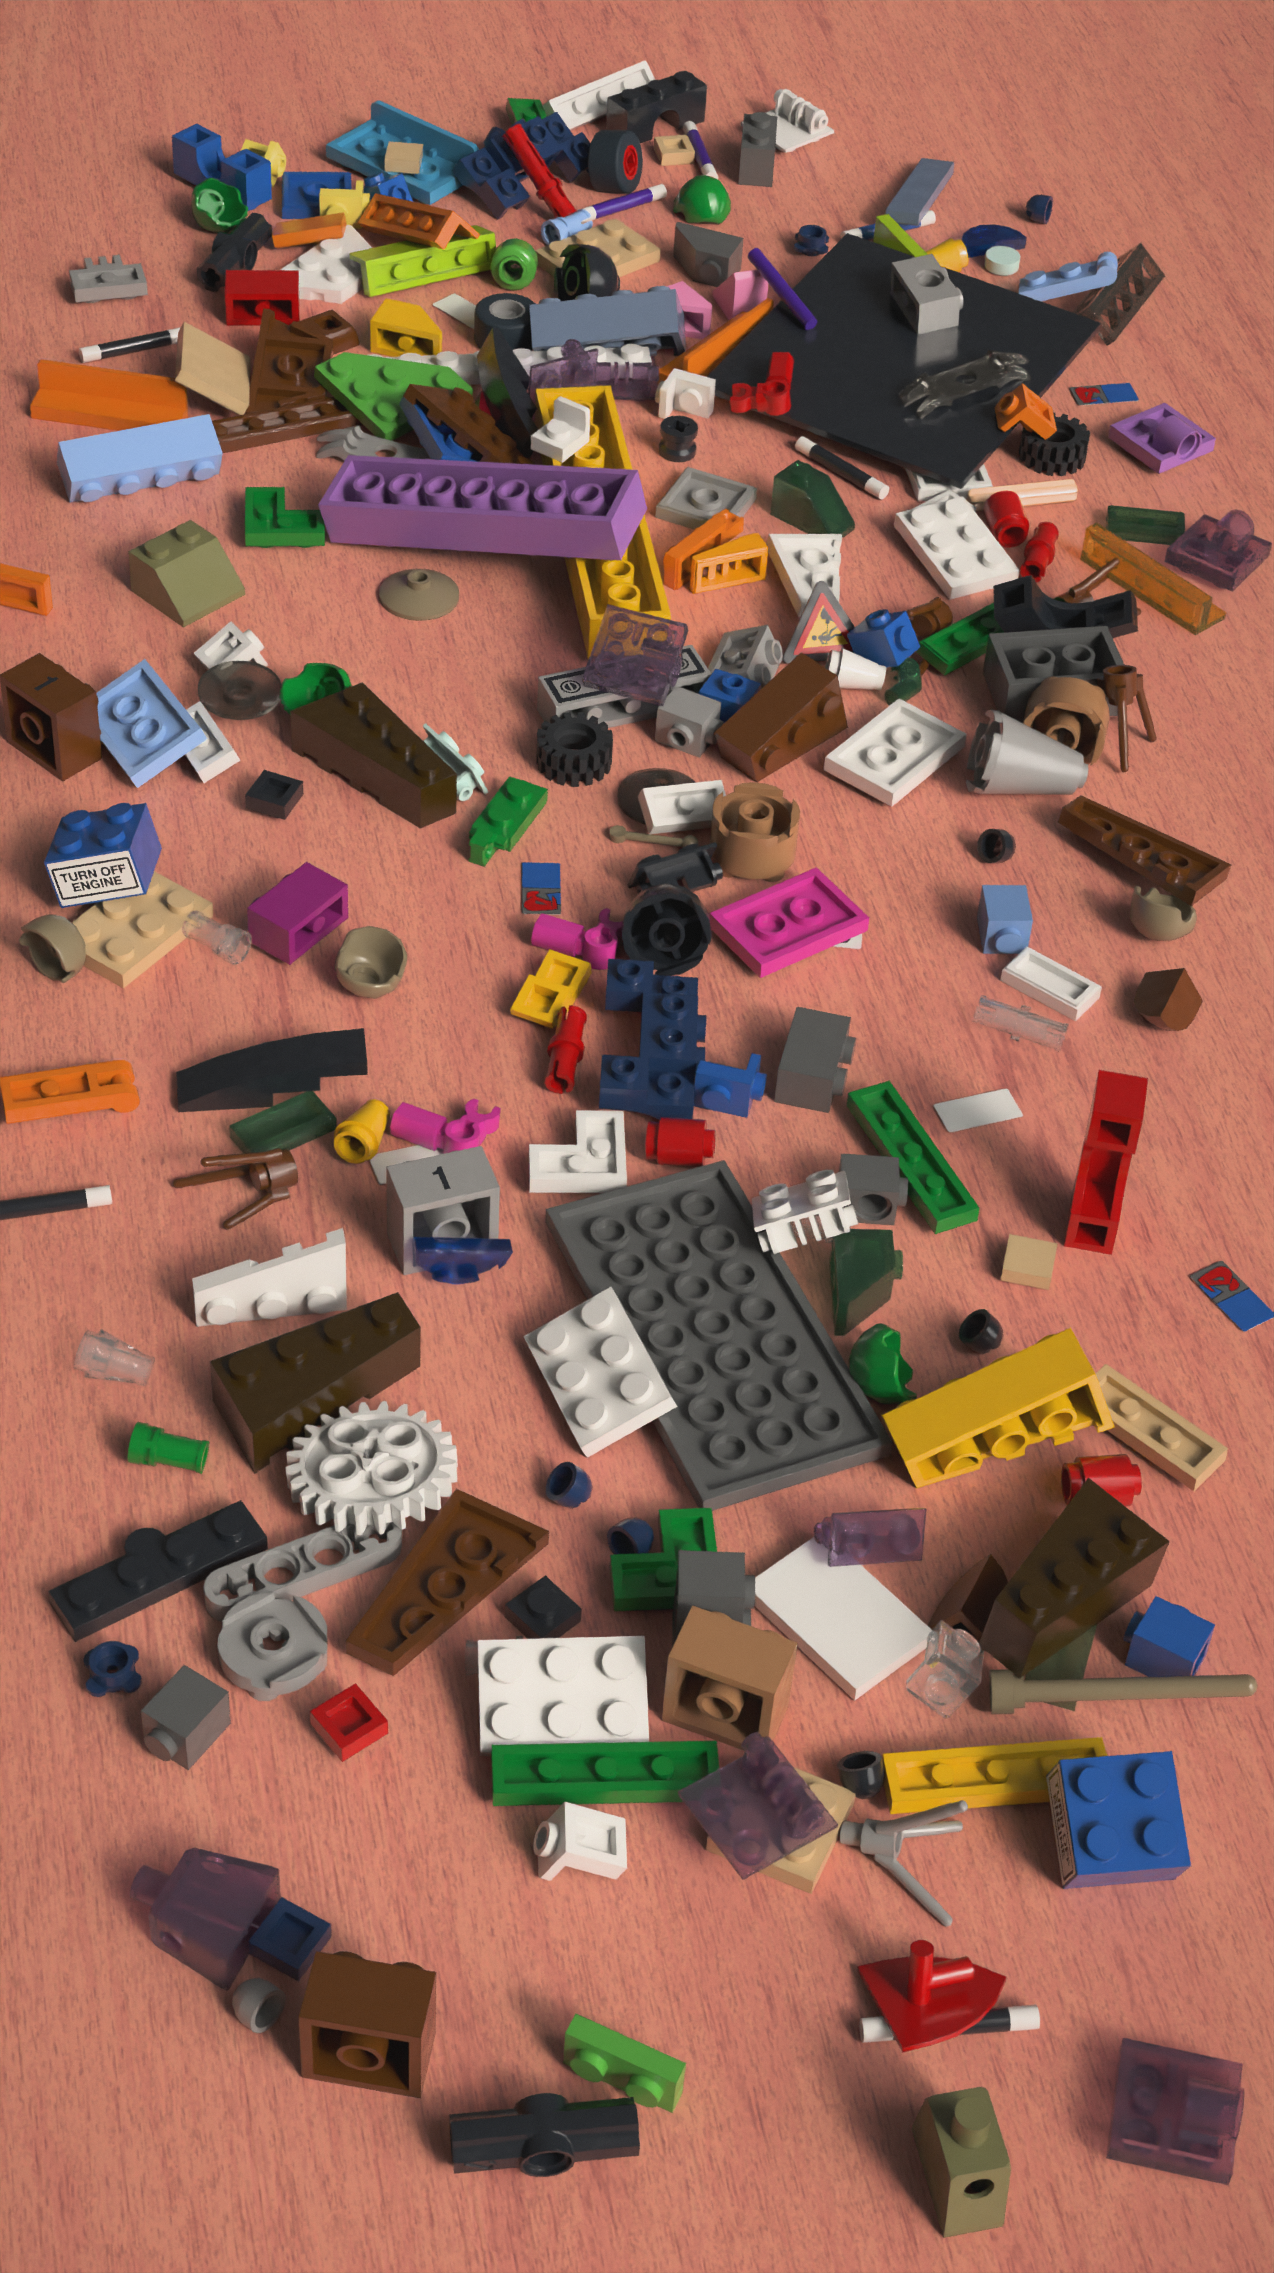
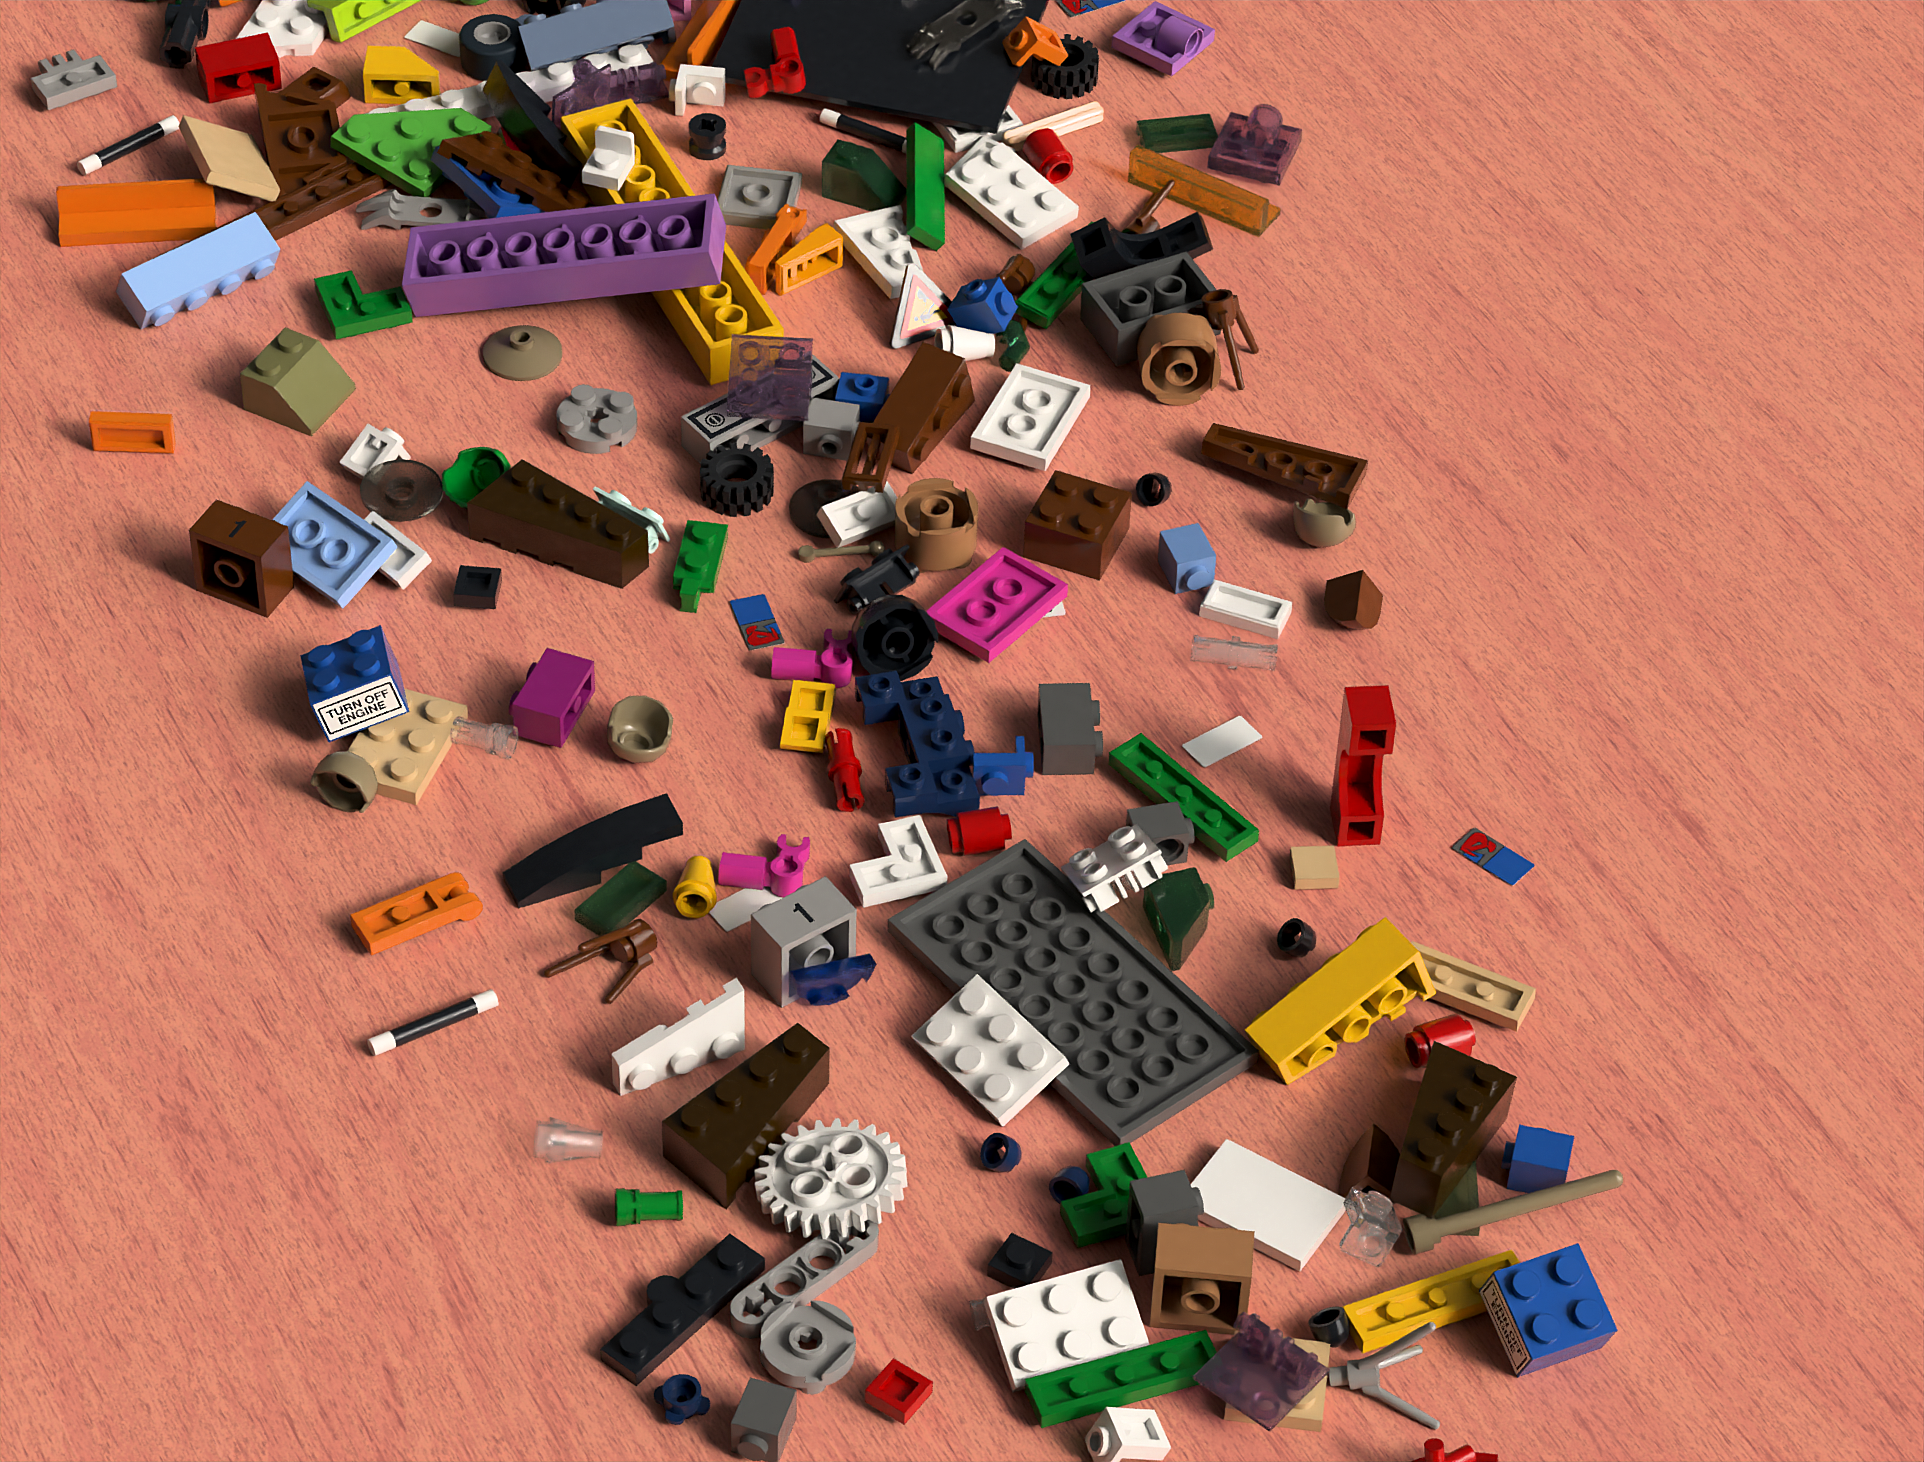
camera: 15 degrees left, 0 degrees up
(445, 1575) = (928, 1253): reddish brown wing -> none
(478, 662) = (586, 403): none -> light grey plate
(717, 754) = (866, 479): none -> reddish brown tile
(749, 654) = (860, 349): light grey bracket -> none
(871, 522) = (925, 186): none -> green tile
(872, 1536) = (1270, 1133): clear purple hinge -> none
(880, 1367) = (1225, 989): green hair -> none
(901, 862) = (1077, 525): none -> reddish brown brick
(1022, 760) = (1149, 401): light grey cone -> none
(1040, 551) = (1090, 183): red pin -> none

